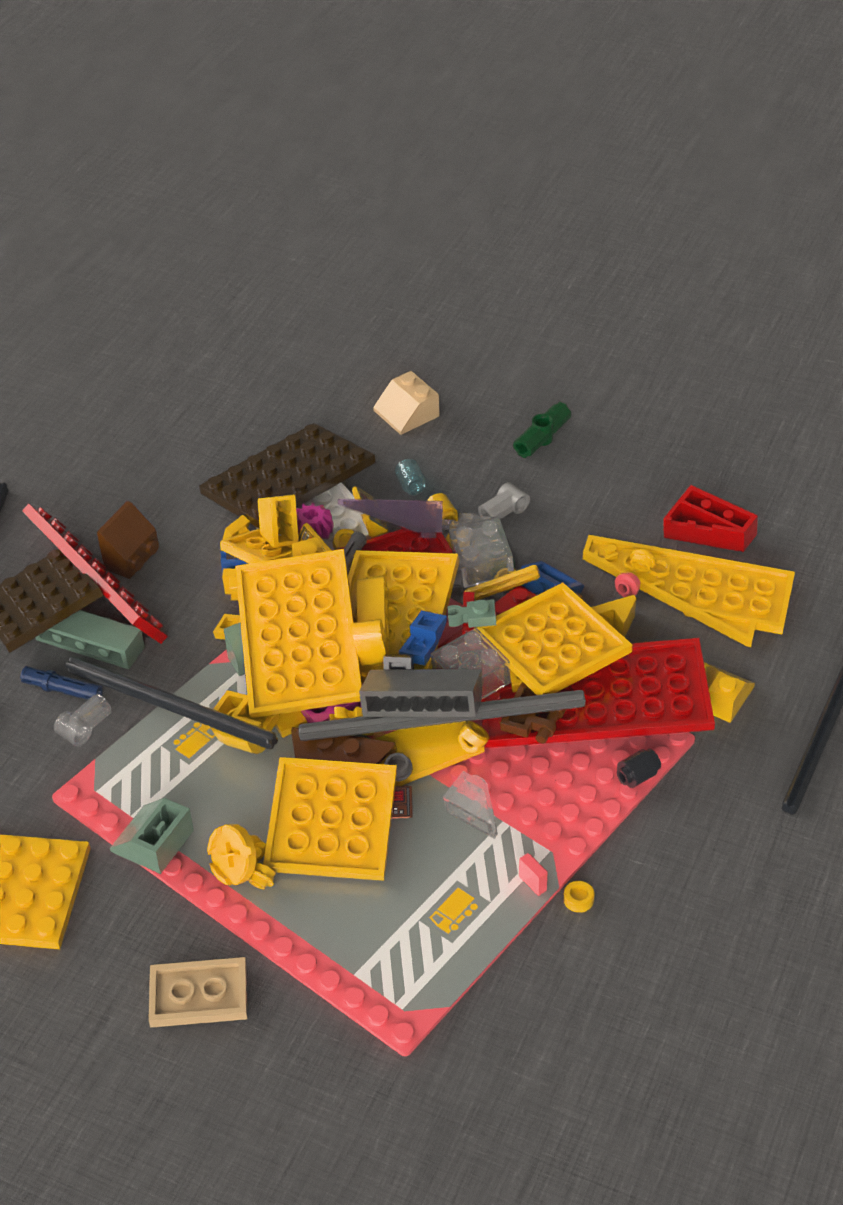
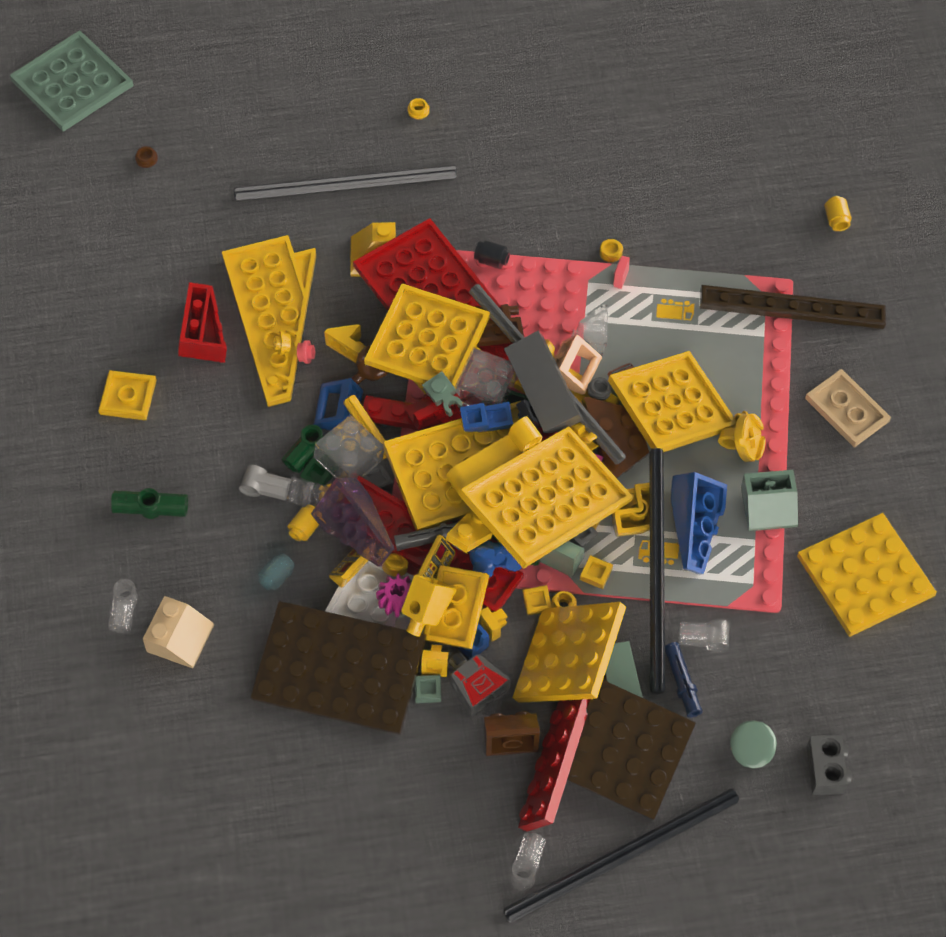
camera: 125 degrees left, 15 degrees up
(16, 501) = (527, 860): none -> clear piece
(149, 595) = (569, 653): none -> yellow plate
(193, 549) = (476, 682): none -> torso
(195, 774) = (696, 510): none -> blue wedge
(210, 642) = (563, 596): none -> yellow plate
(214, 672) = (596, 572): none -> yellow plate
(218, 523) = (428, 689): none -> sand green tile
(359, 1022) = (792, 307): none -> dark brown tile
(451, 747) = (567, 354): none -> light nougat tile
(459, 1162) = (838, 213): none -> yellow brick
(463, 385) = (122, 607): none -> clear piece
(520, 542) = (302, 450): none -> dark green piece
(672, 462) = (127, 395): none -> yellow tile

